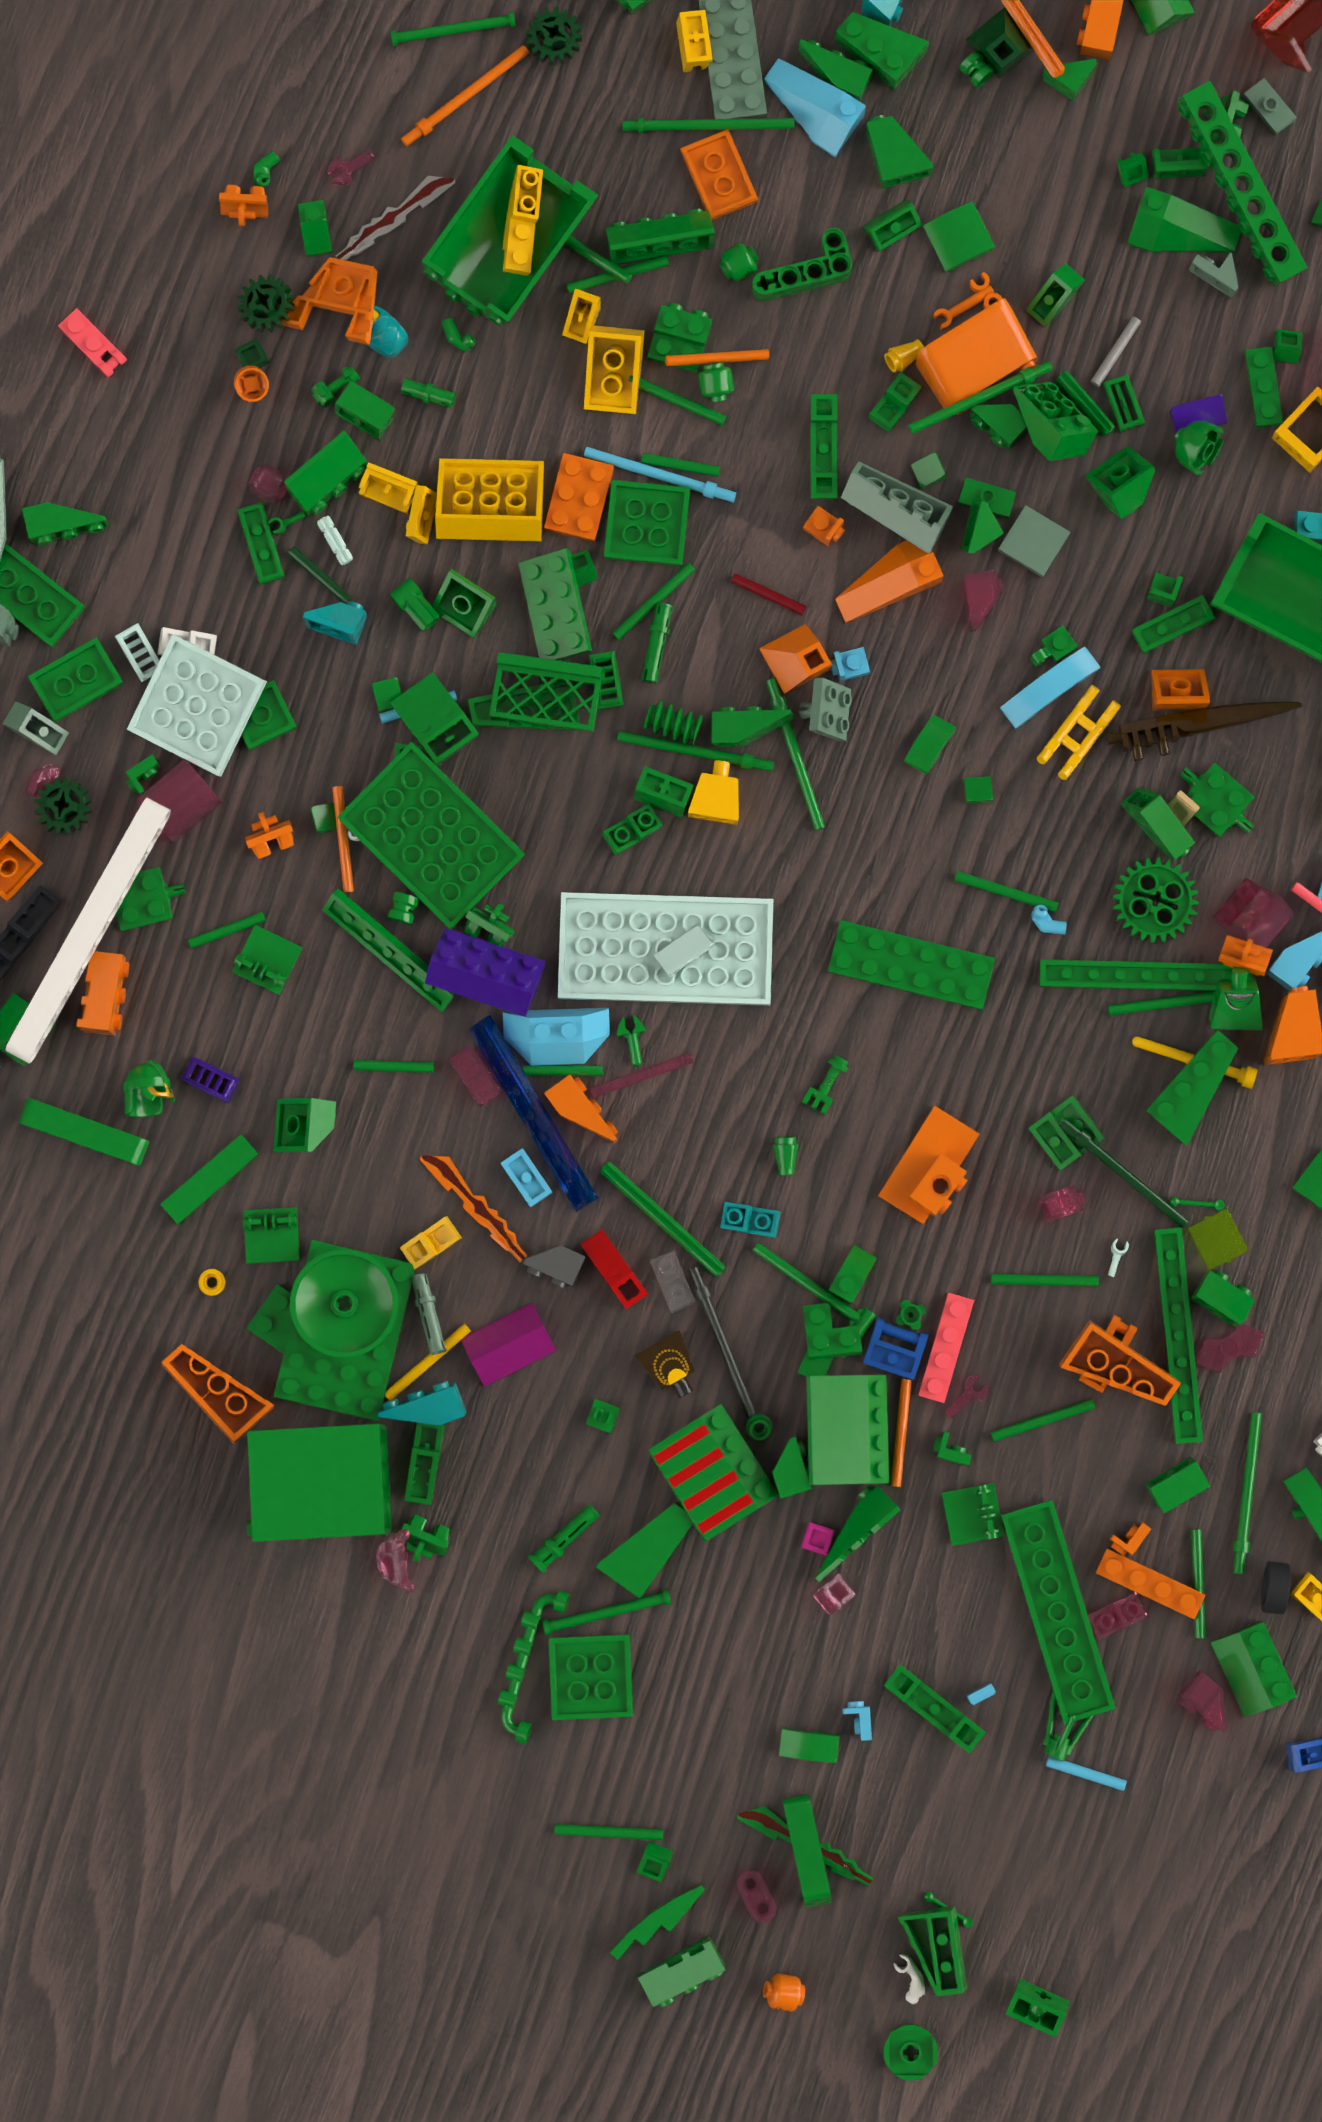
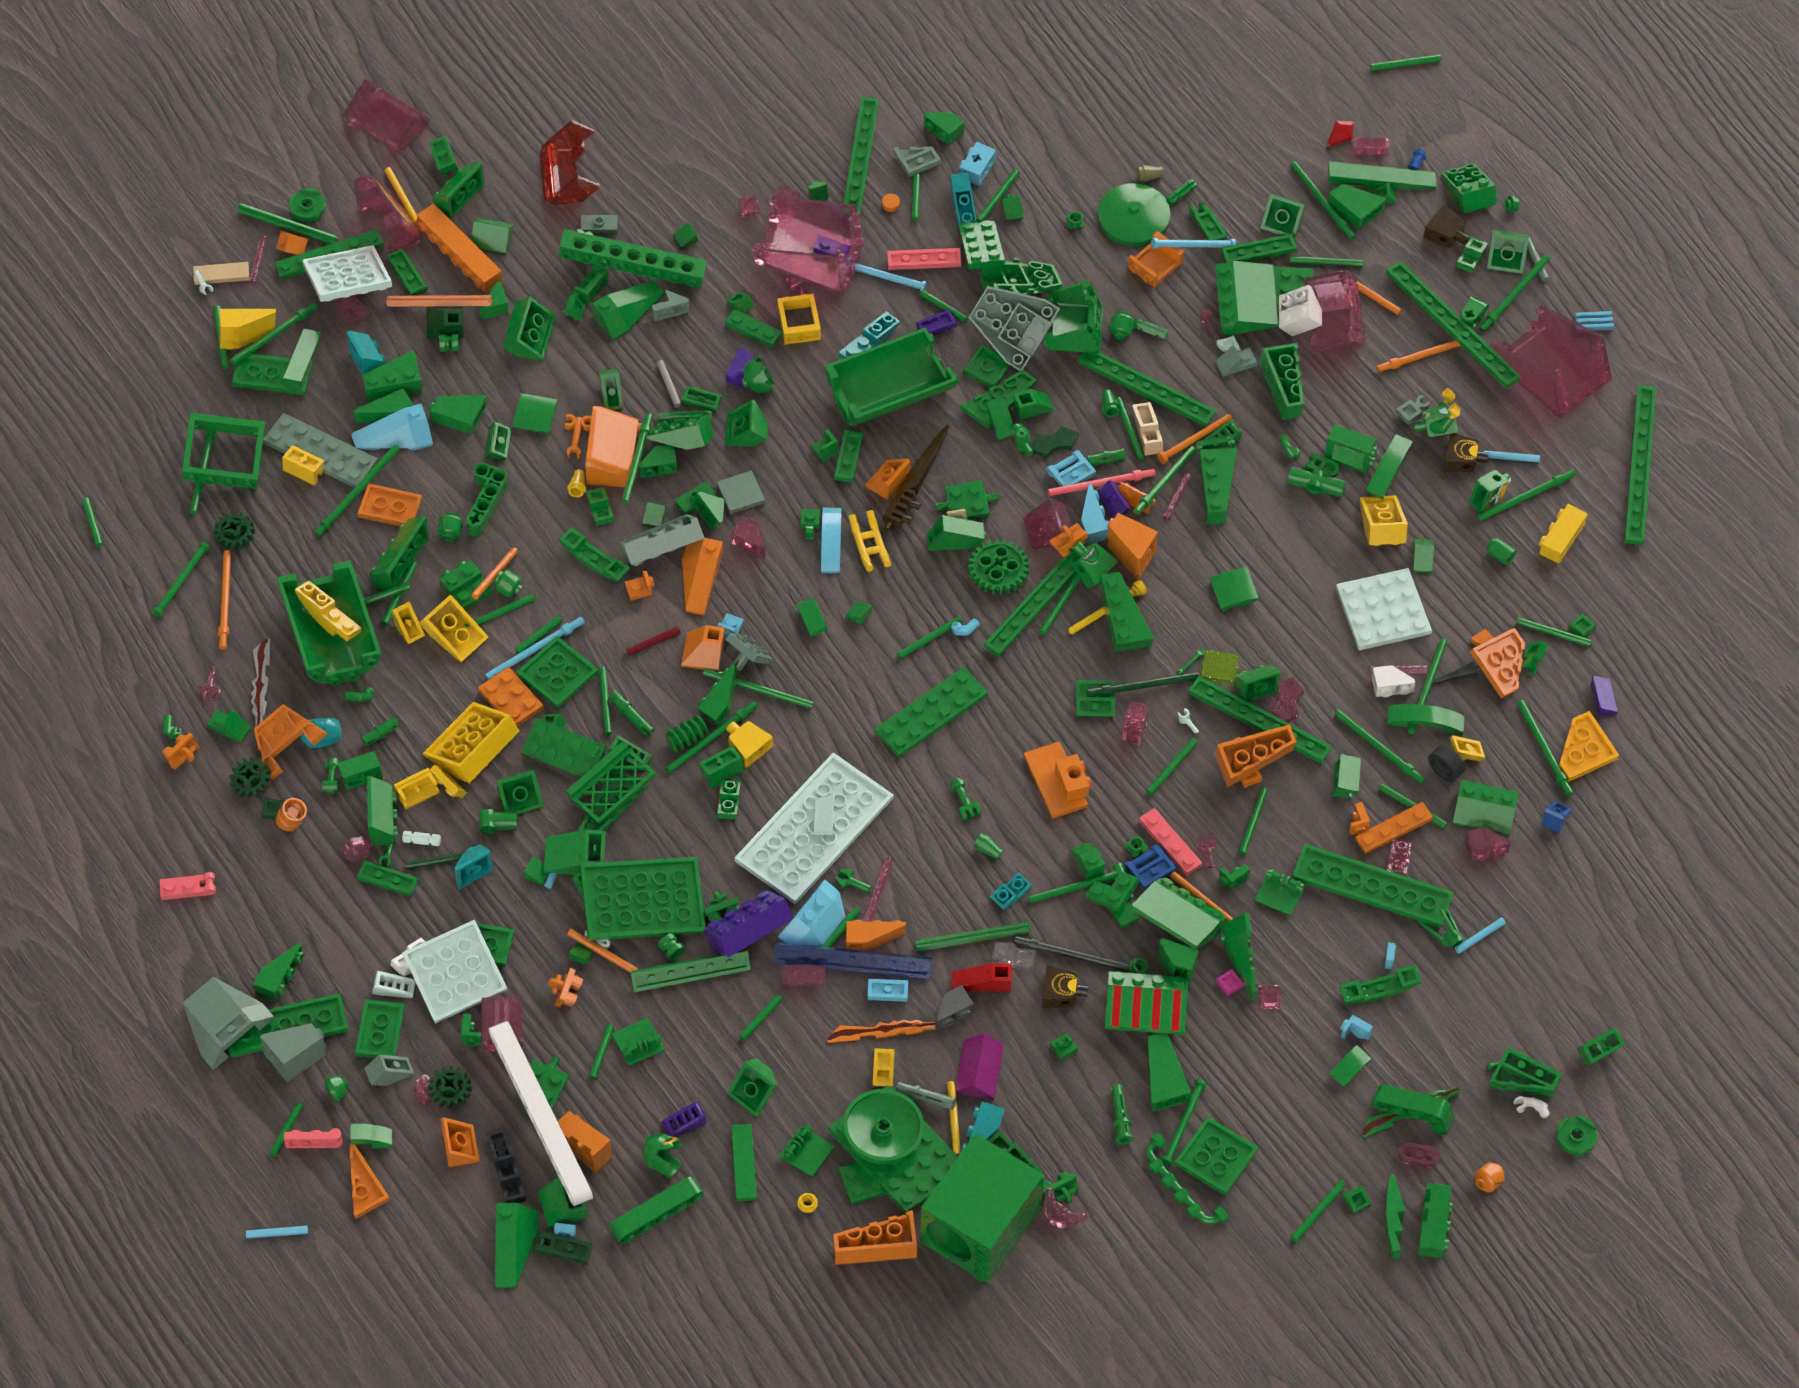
camera: 55 degrees left, 25 degrees down
(1063, 143) = (529, 329): none -> green slope

